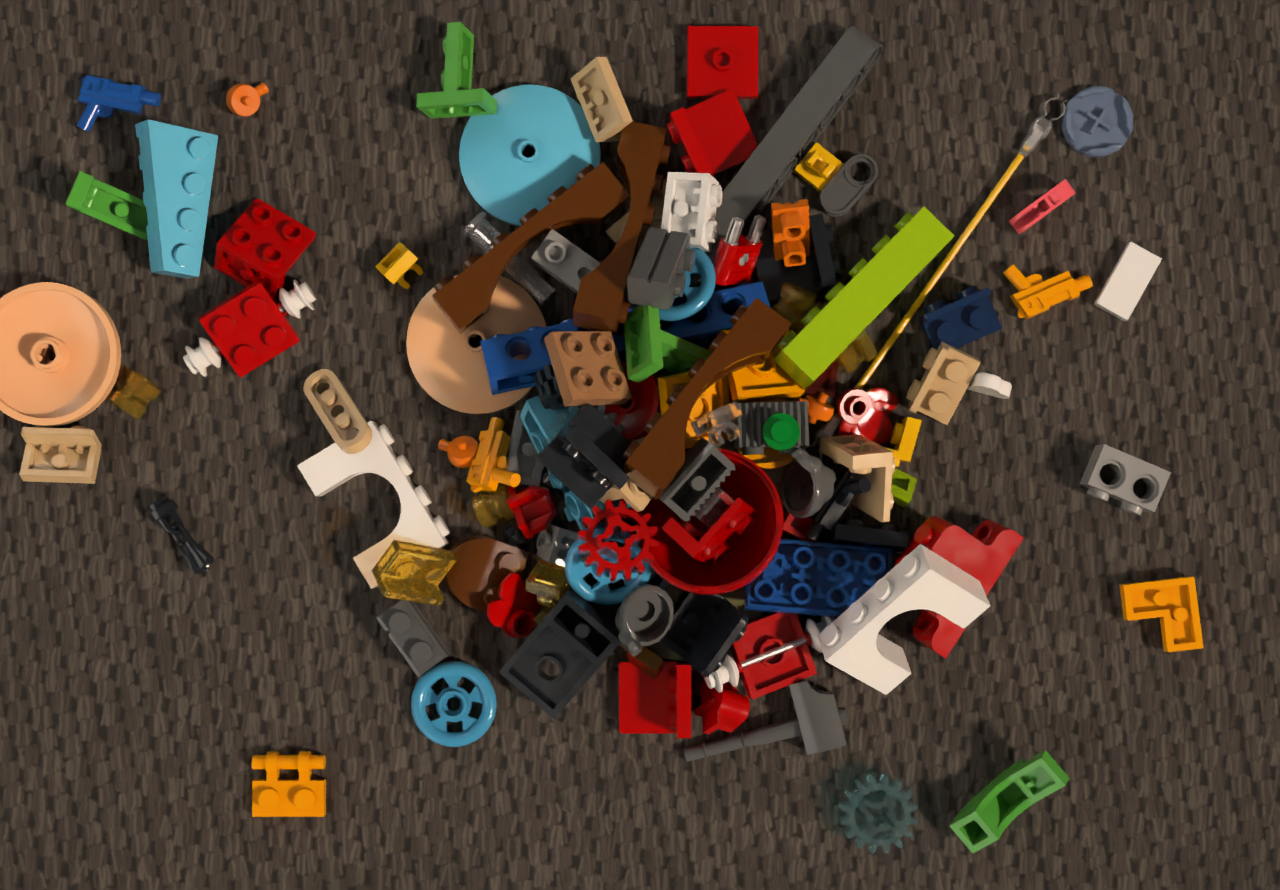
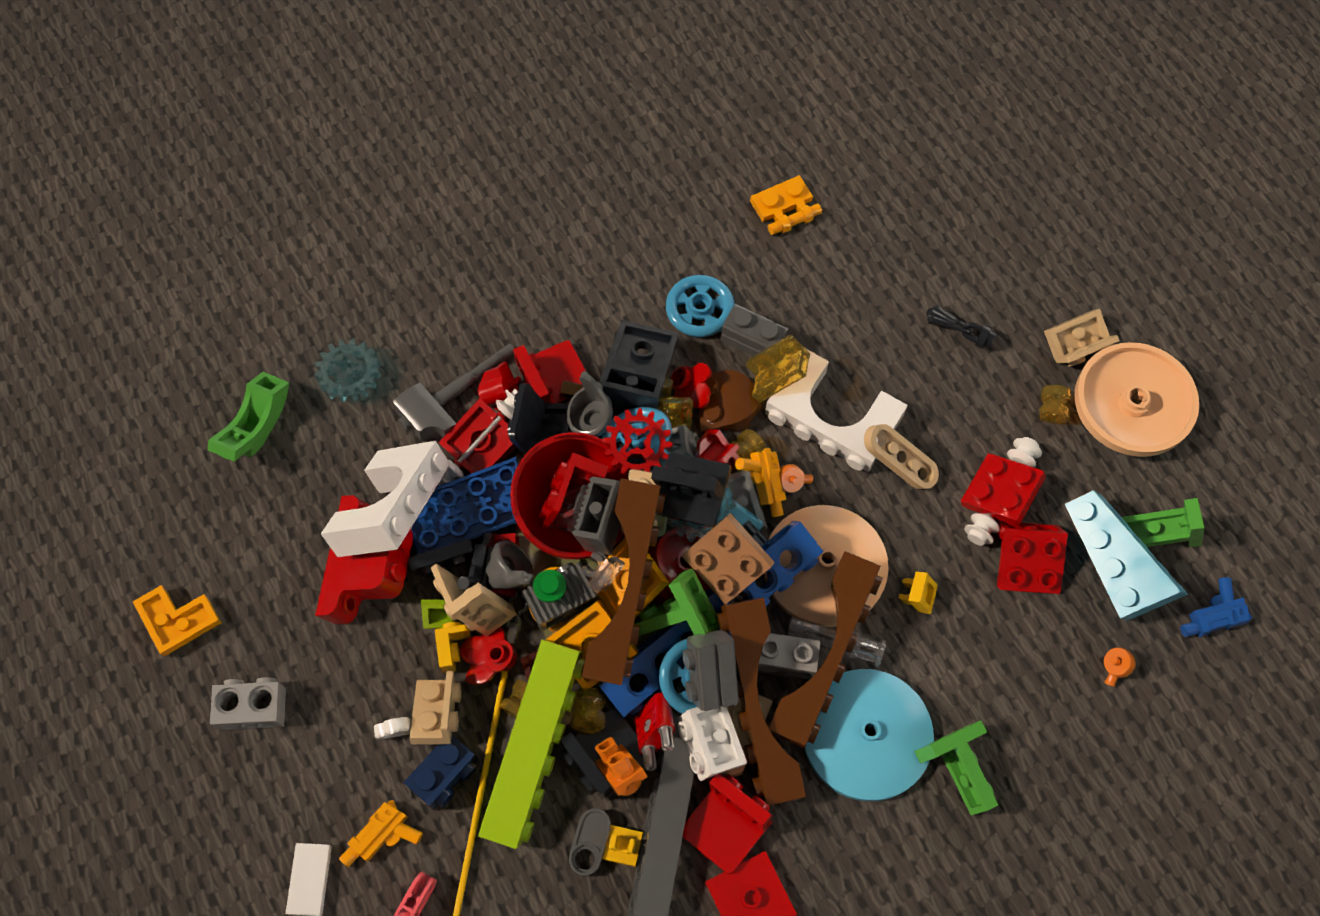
camera: 145 degrees right, 20 degrees down
(601, 100) = (834, 803): tan bracket -> none
(818, 407) = (529, 640): orange piece -> none

